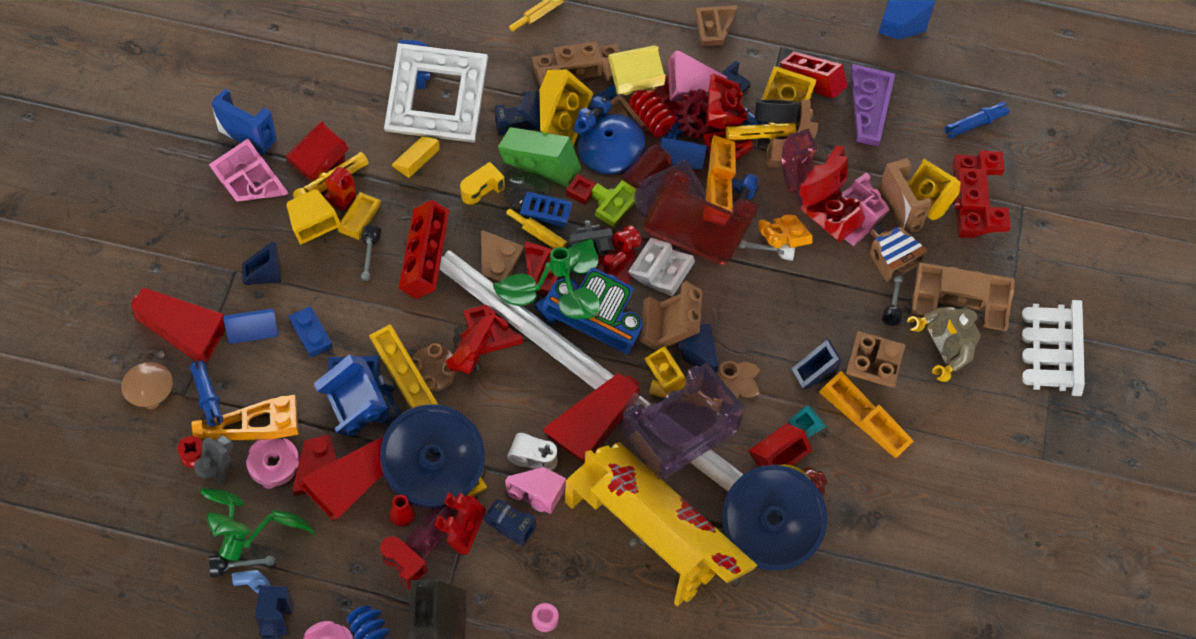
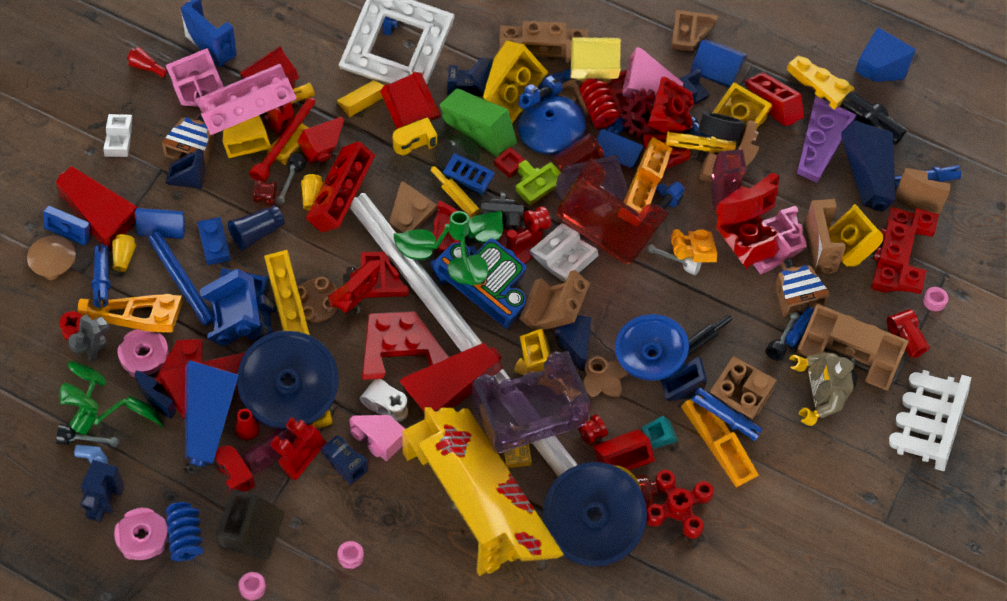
camera: 15 degrees right, 0 degrees up
(154, 349) = (66, 225): none -> blue plate
(180, 246) = (118, 135): none -> white slope
(183, 165) = (140, 59): none -> red cone
(221, 363) = (123, 251): none -> yellow cone
(255, 233) = (188, 137): none -> torso
(288, 377) = (181, 279): none -> blue axle
(292, 499) = (151, 391): none -> dark blue slope
(304, 181) = (245, 99): none -> bright pink fence
(338, 251) = (261, 170): none -> red piece
(348, 271) = (265, 192): none -> clear red wheel
(349, 308) = (255, 226): none -> dark blue plant
(358, 505) = (206, 408): none -> blue slope
(390, 207) = (320, 140): none -> red slope
(394, 257) = (310, 188): none -> yellow cone
(466, 149) = (409, 100): none -> red slope
(527, 385) = (397, 336): none -> red wing
(680, 478) = (518, 457): none -> yellow tile
(745, 434) = (593, 429): none -> red wheel
(751, 51) = (718, 62): none -> blue slope
(777, 328) = (648, 336): none -> blue dish
(816, 322) = (706, 334): none -> black axle
(855, 482) = (680, 495): none -> red gear
(857, 50) = (820, 79): none -> yellow wing
(877, 392) = (735, 419): none -> blue pin
(906, 288) = (799, 328): none -> blue axle
(911, 73) = (873, 115): none -> black piece
(925, 117) = (872, 163): none -> dark blue slope
(978, 134) = (920, 193): none -> medium nougat slope
(1004, 264) = (906, 326): none -> red piece
(1021, 233) = (935, 299): none -> bright pink tile

